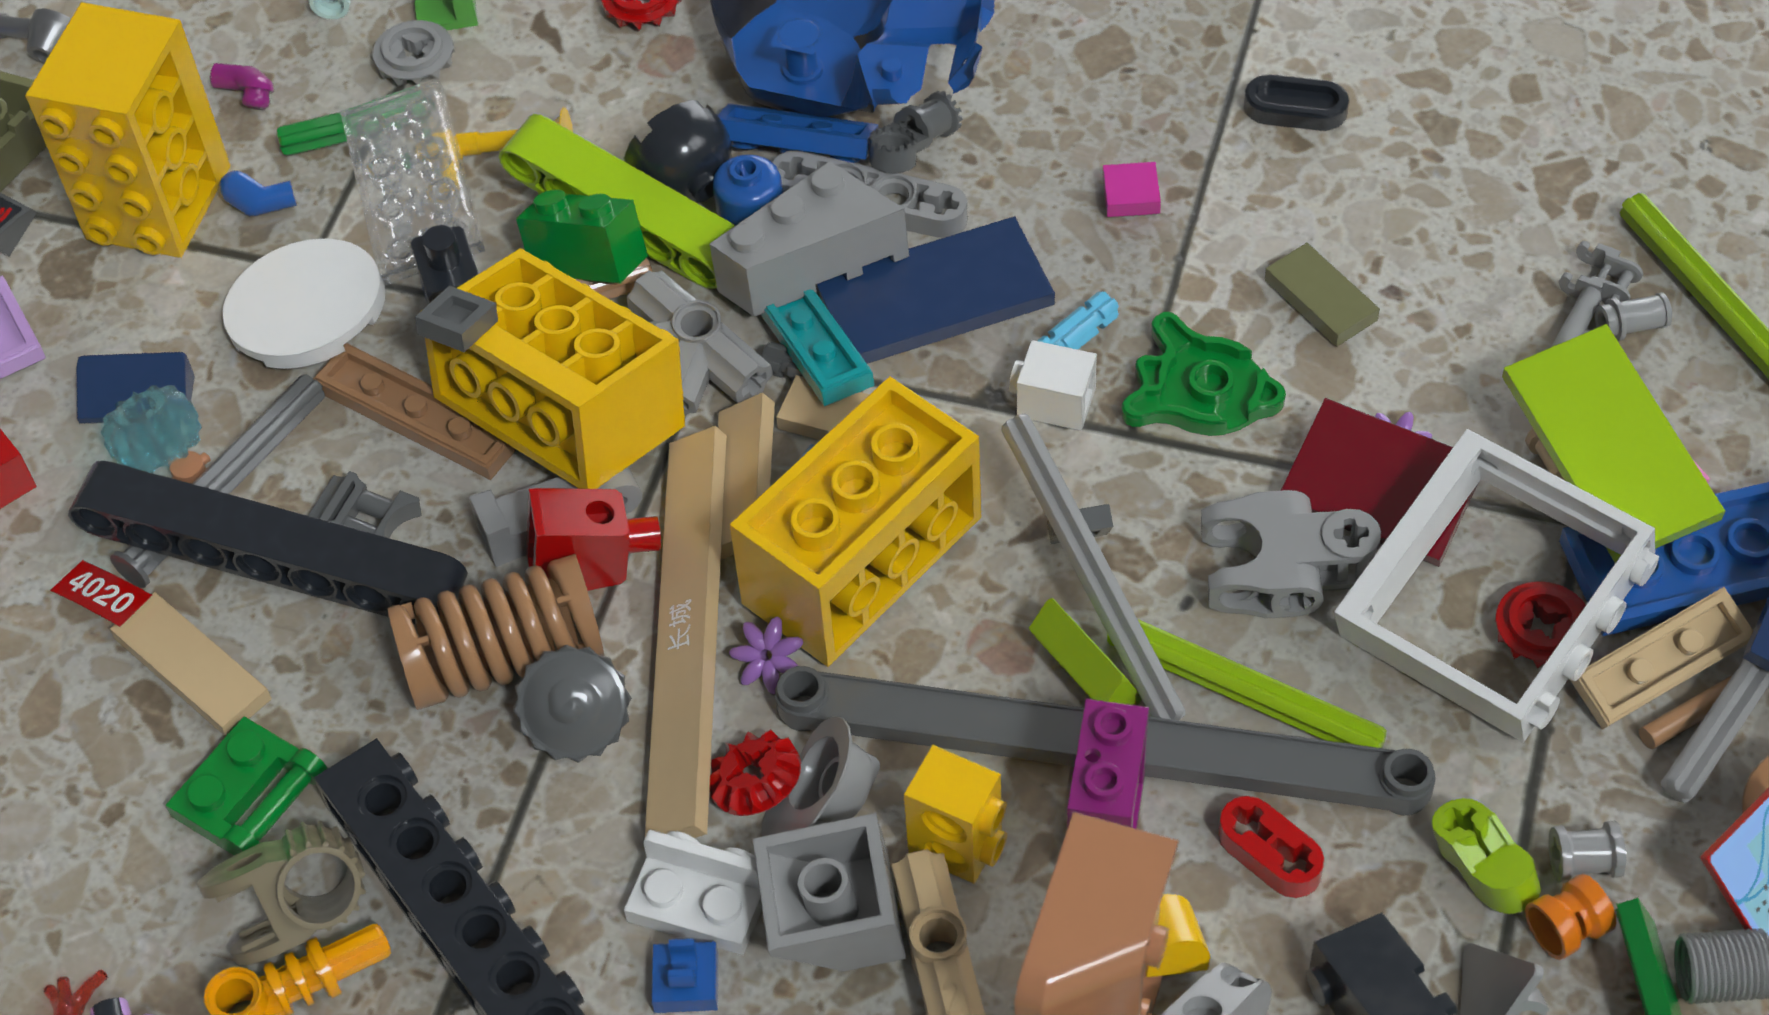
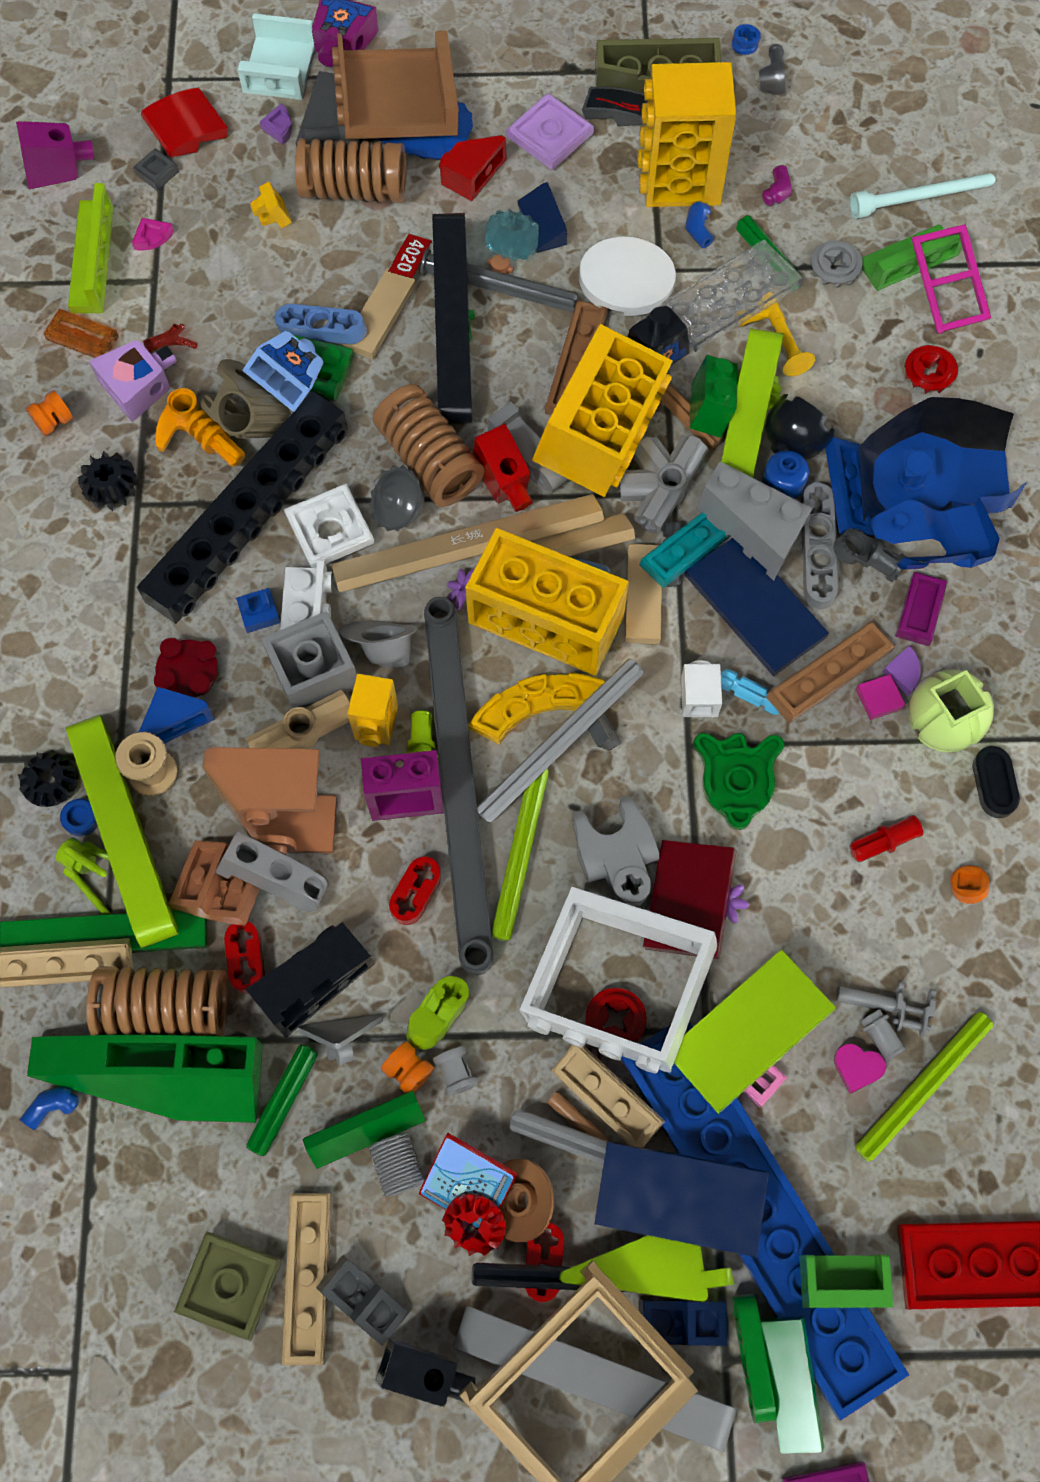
camera: 70 degrees right, 15 degrees up
(168, 725) = (331, 332): none -> medium blue beam
(268, 792) = (285, 368): none -> light blue torso
(349, 495) = (494, 344): dark grey piece -> none
(456, 318) = (594, 341): dark grey tile -> none
(549, 798) = (334, 506): none -> white piece
(747, 794) = (386, 614): red gear -> none
(986, 601) = (530, 698): none -> yellow tile
(1011, 110) = (921, 609): none -> magenta tile
(1025, 775) = (421, 732): none -> lime pin
(1079, 230) = (830, 672): none -> medium nougat tile
(1081, 656) = (507, 754): lime slope -> none
(1098, 148) = (905, 670): none -> medium lavender tile
(1185, 944) = (337, 848): yellow brick -> none
(1194, 124) = (935, 722): none -> yellowish green piece
(1322, 294) = (834, 833): olive tile -> none
(1348, 235) = (886, 839): none -> red axle
(1439, 165) = (970, 884): none -> orange tile
(1672, 358) = (858, 1067): none -> dark pink tile

